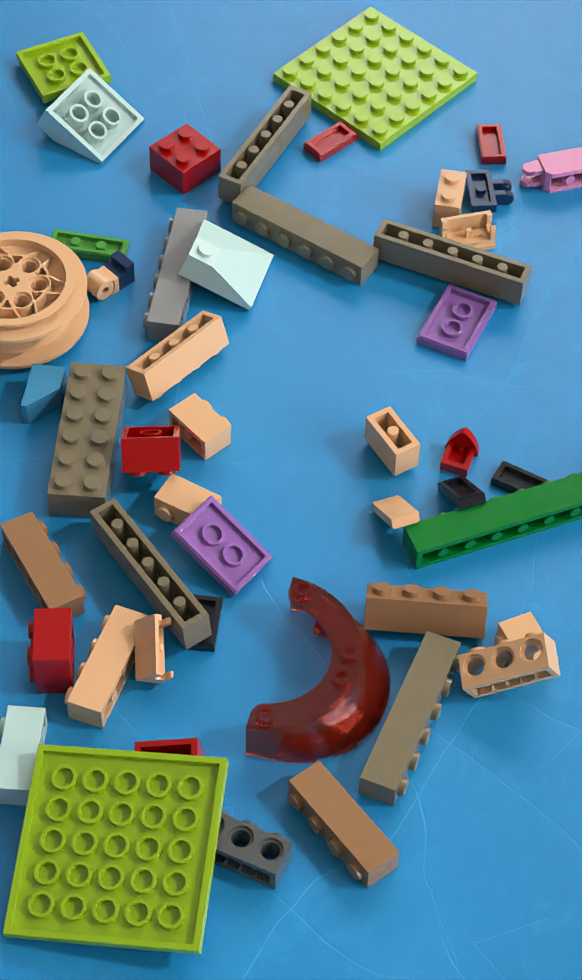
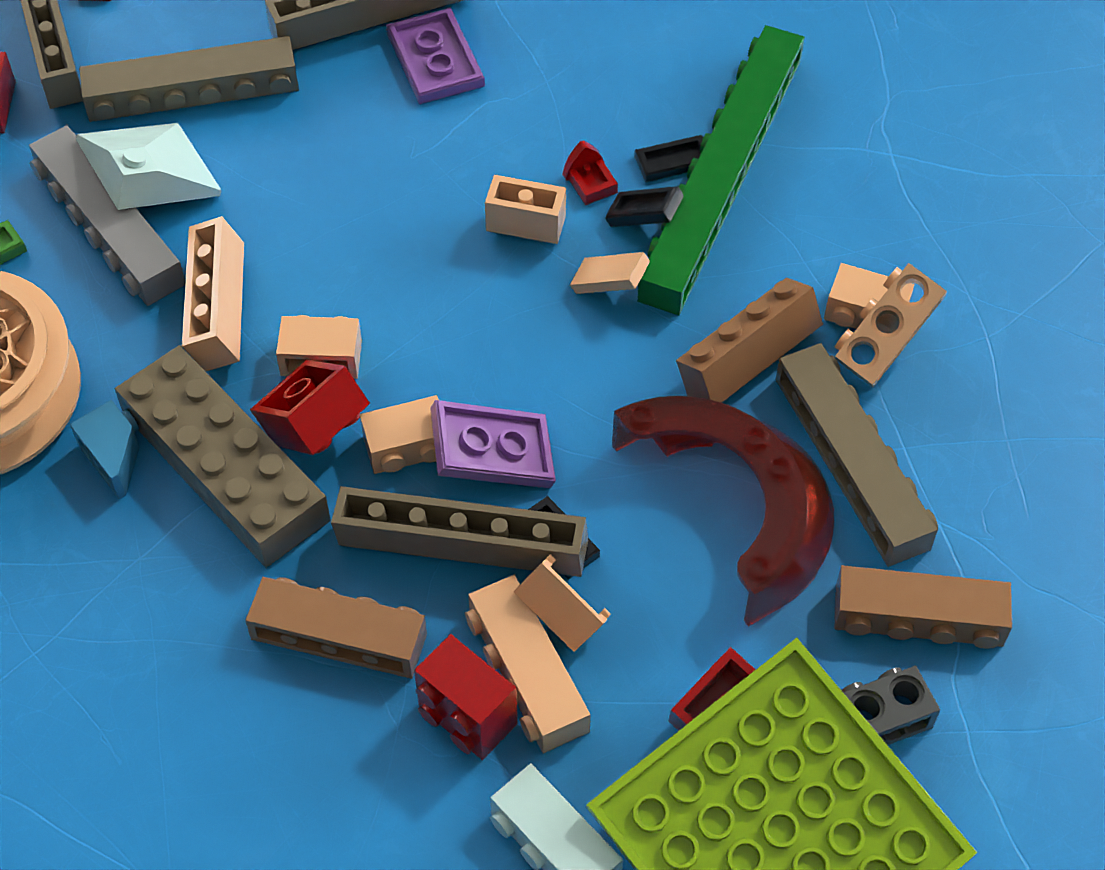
camera: 45 degrees left, 5 degrees up
(111, 276) = (38, 261): leg -> none

